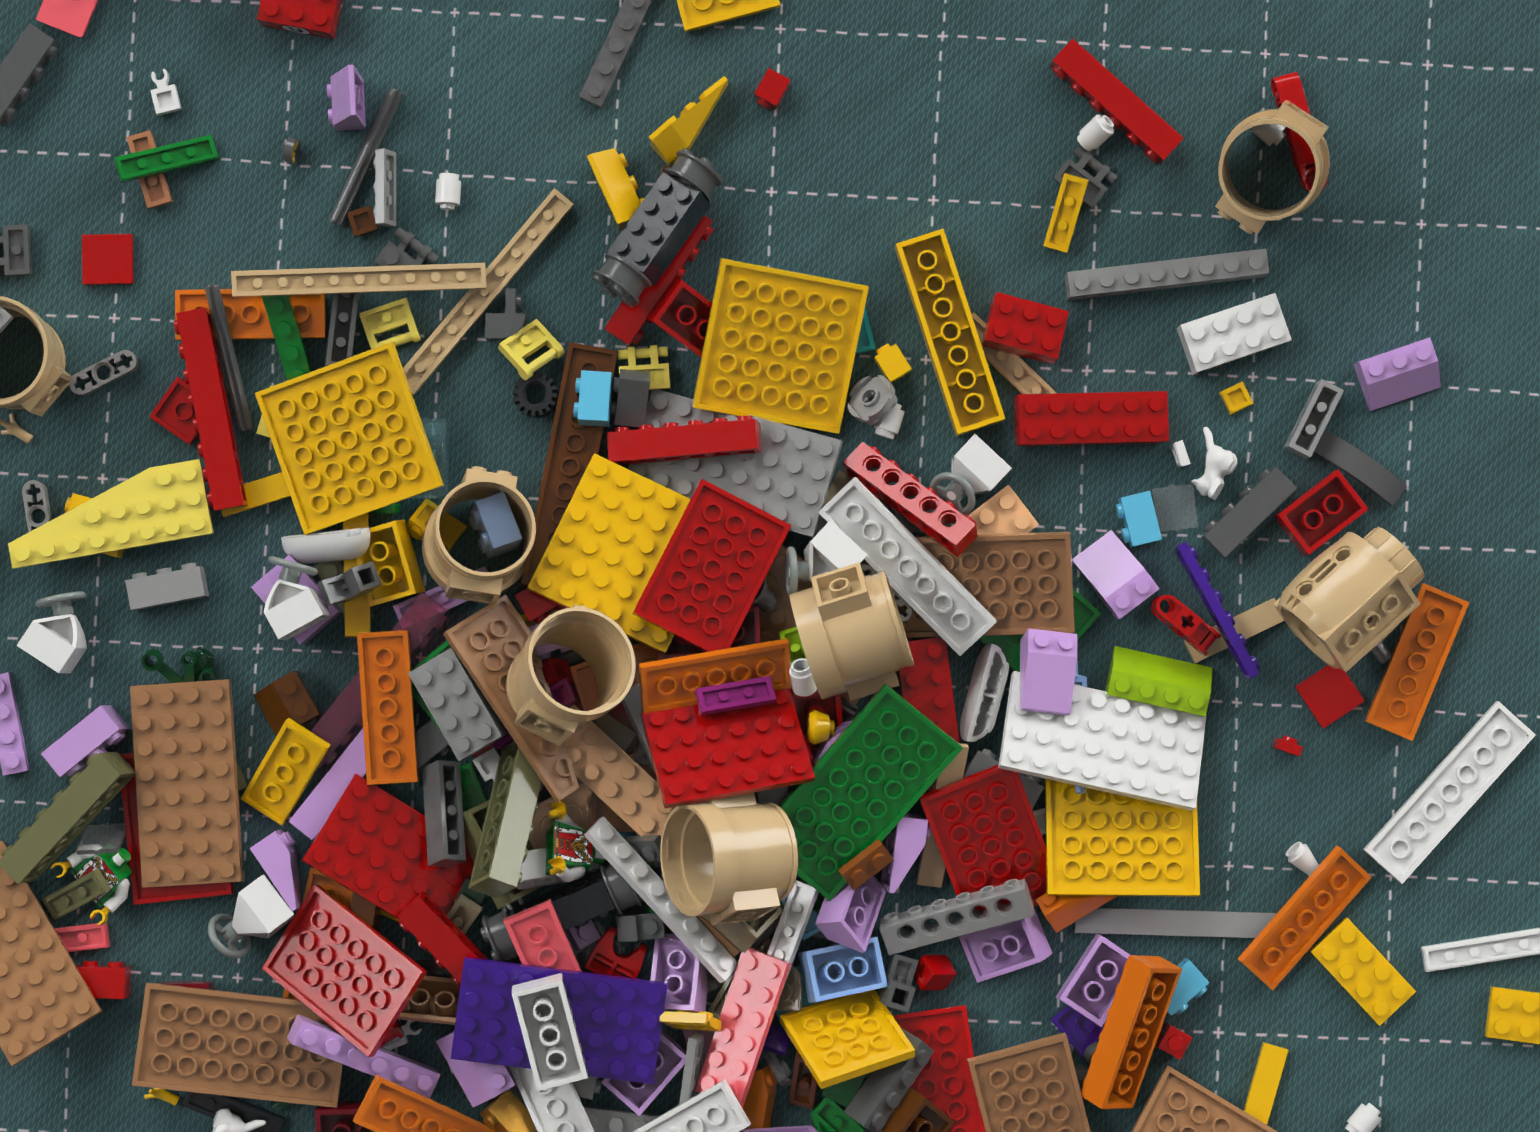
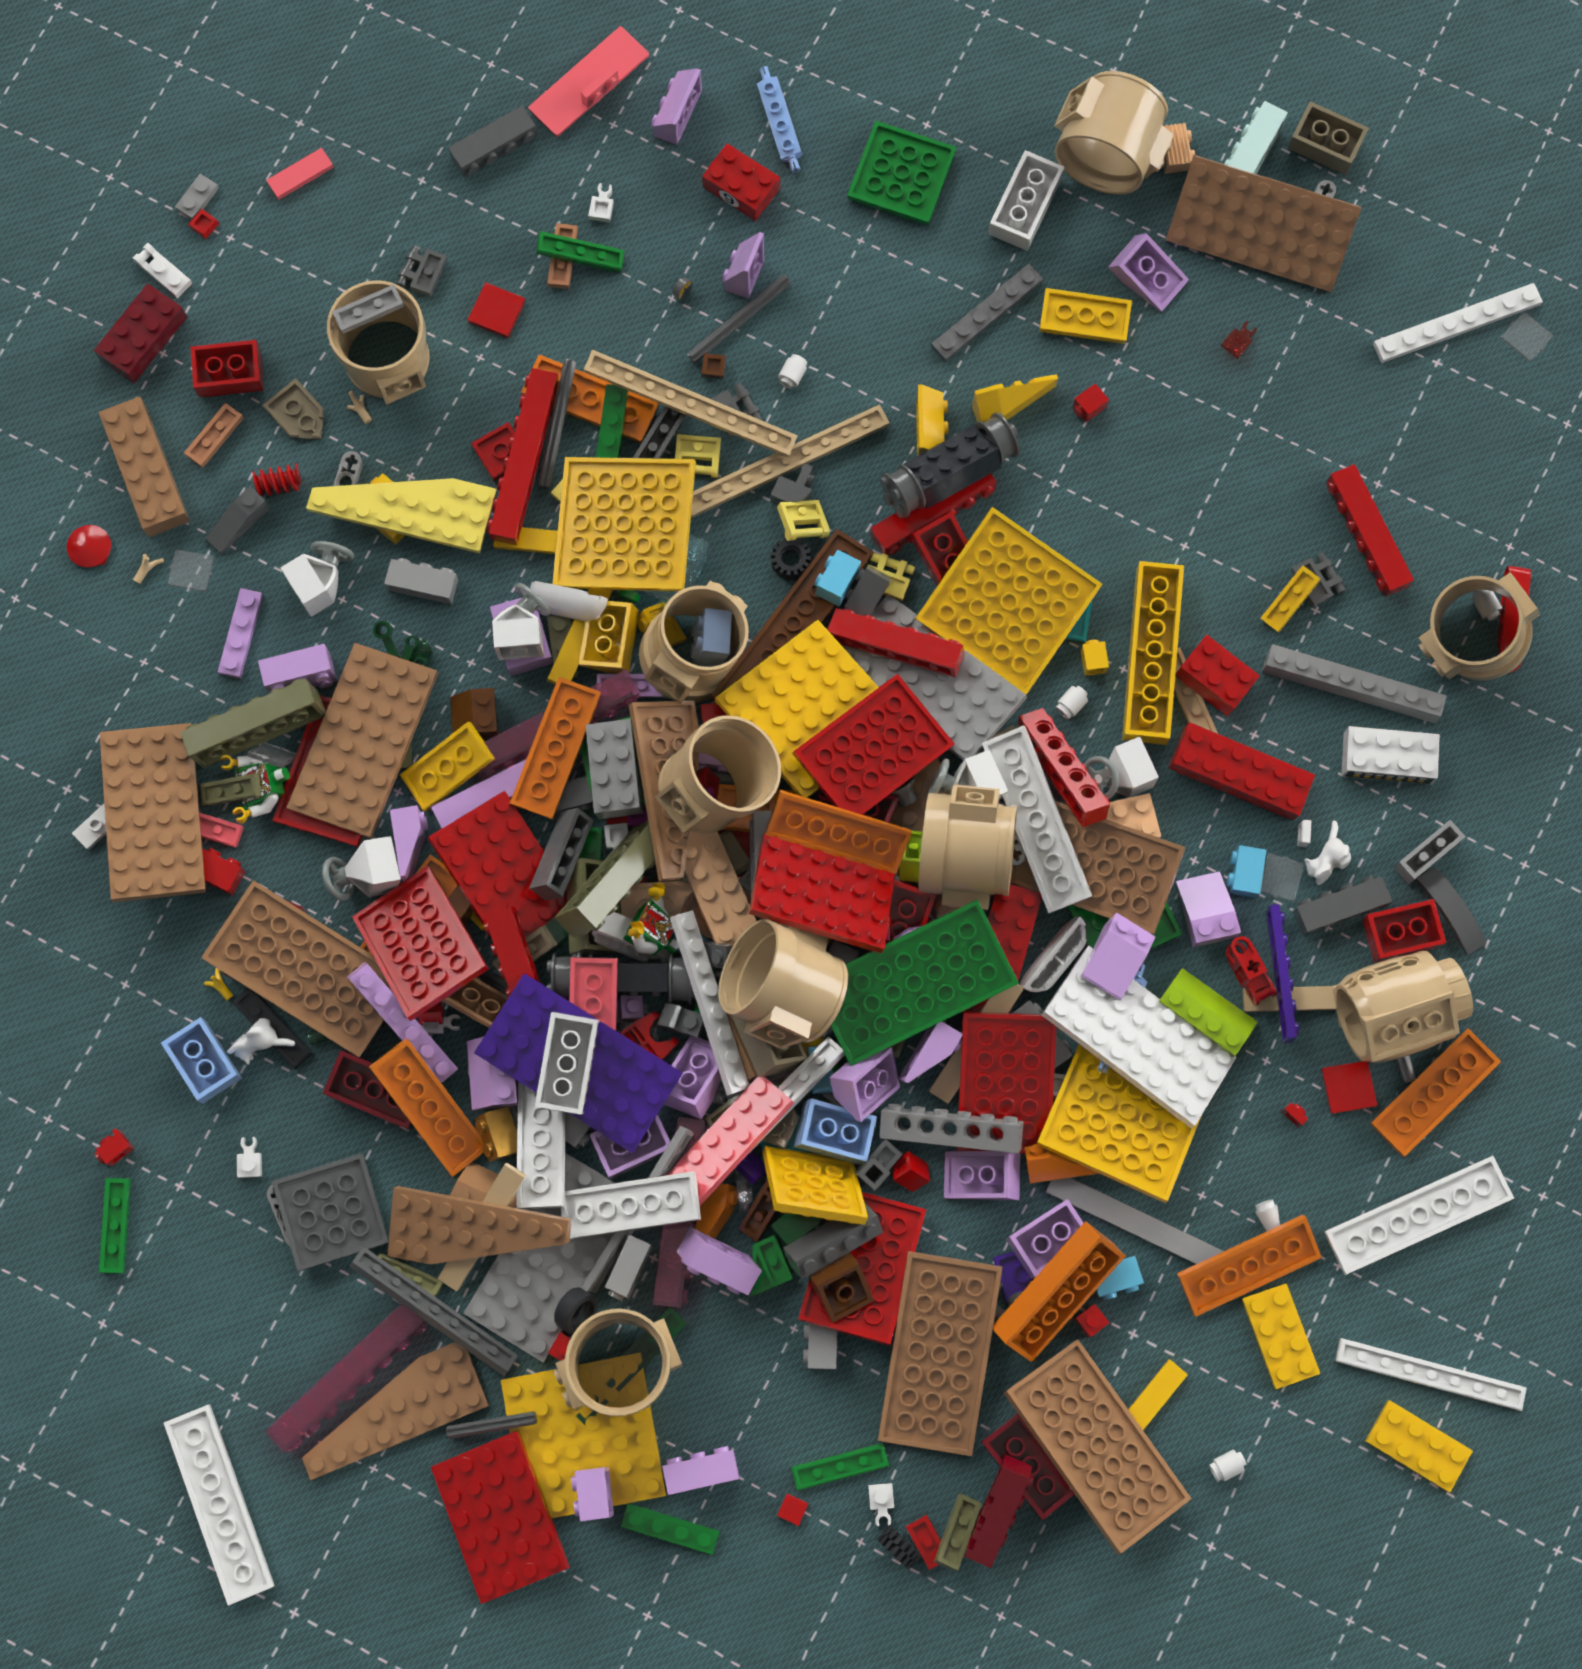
camera: 25 degrees right, 10 degrees down
(117, 358) = (444, 388): light grey beam -> none
(351, 584) = (576, 638): dark grey brick -> none
(385, 187) = (743, 347): light grey plate -> none
(691, 1021) = (688, 1114): yellow plate -> none
(735, 695) = (847, 854): magenta plate -> none
(802, 678) = (909, 869): white brick -> none
(819, 727) = (905, 917): yellow cone -> none
(865, 864) = (894, 1047): dark orange plate -> none
(883, 400) = (1058, 684): light grey plate -> none
(1095, 132) = (1342, 546): white brick -> none
(1236, 398) = (1370, 809): yellow tile -> none
(1398, 374) = (1517, 847): lavender slope -> none

